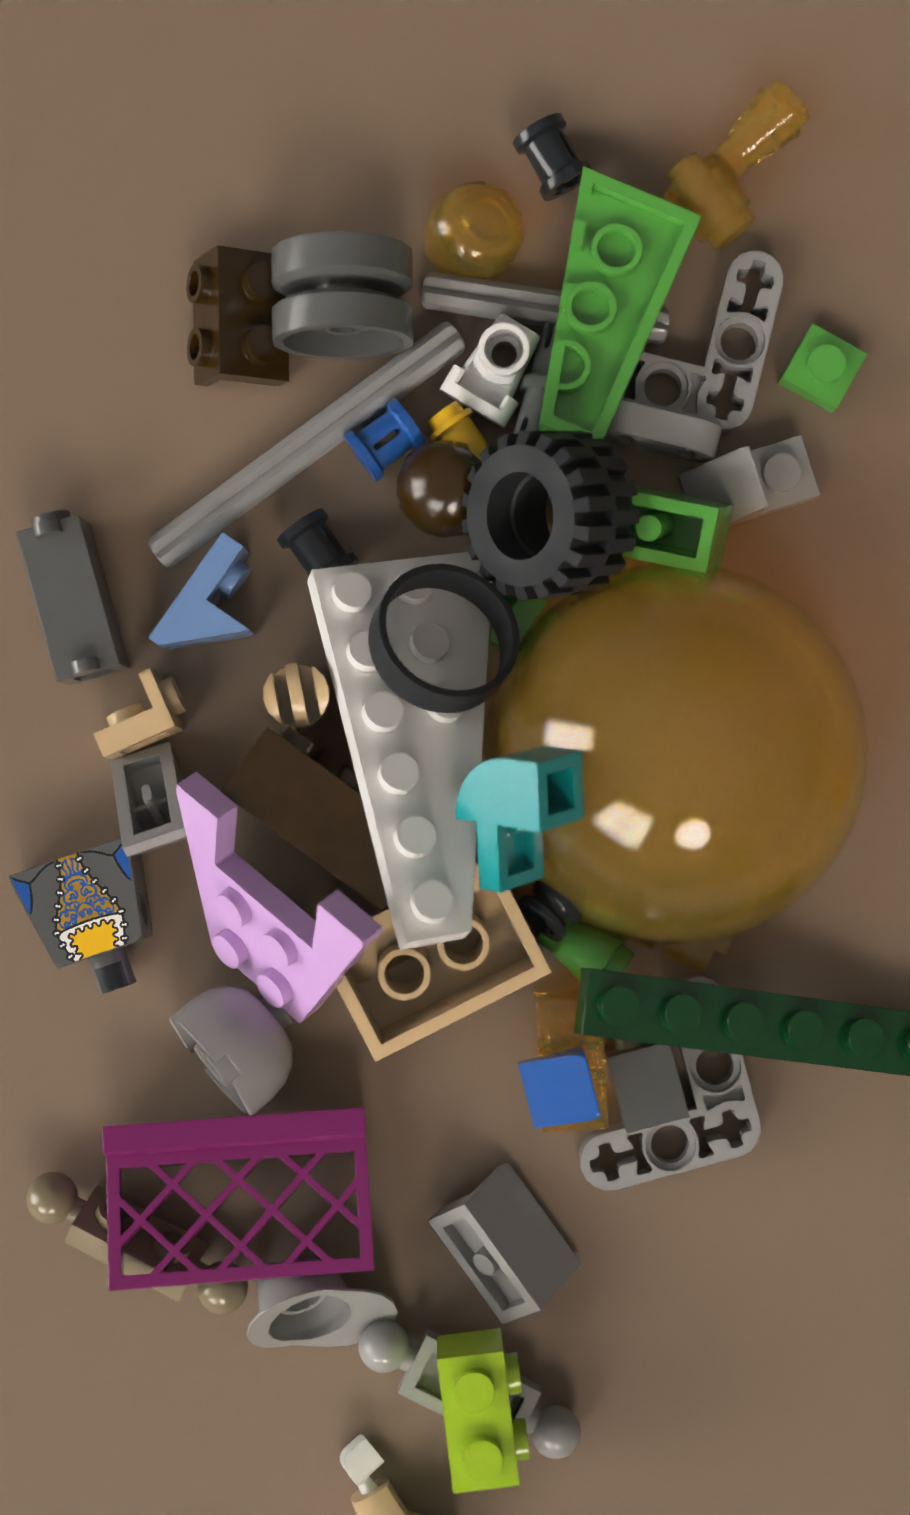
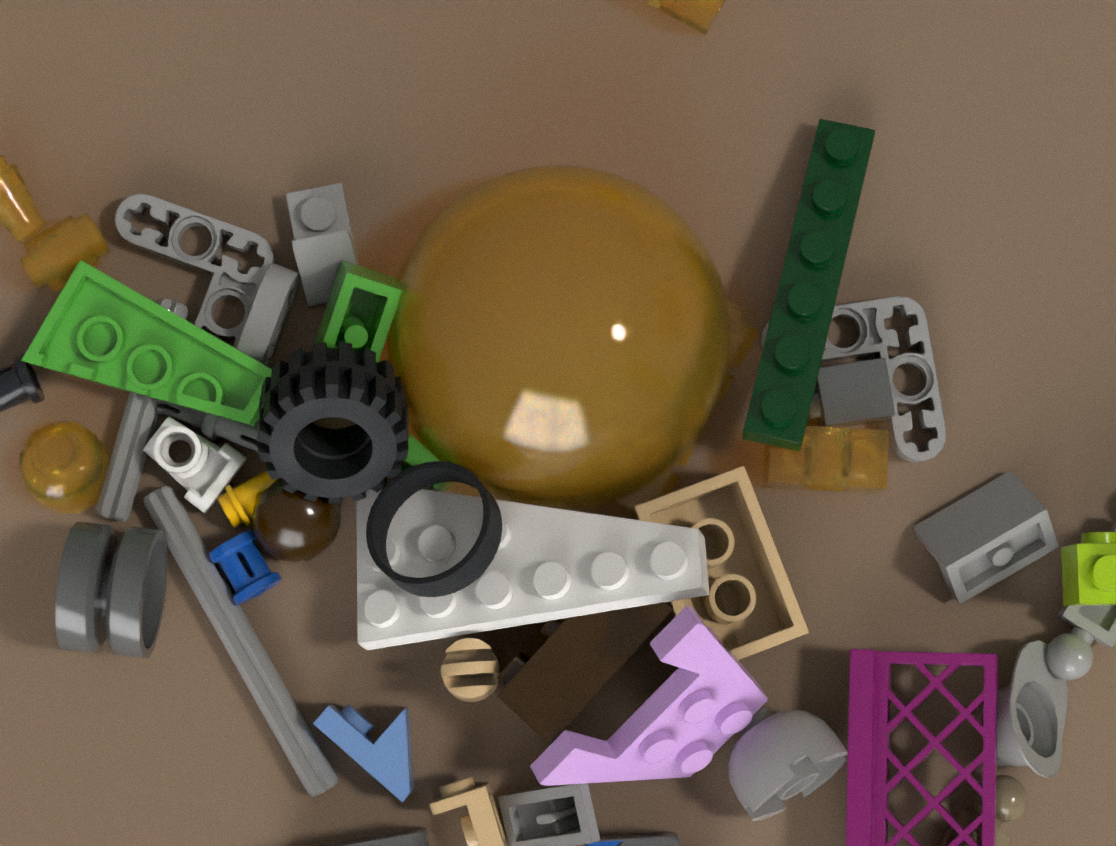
camera: 80 degrees left, 5 degrees down
(234, 319) = (116, 693): dark brown bracket -> none
(315, 543) = (333, 640): black bush -> none
(512, 806) = (590, 479): teal brick -> none
(549, 911) = (689, 462): black bush -> none
(559, 1088) = (848, 468): blue slope -> none
(588, 948) = (723, 437): bright green cone -> none
(822, 368) = (228, 168): bright green plate -> none

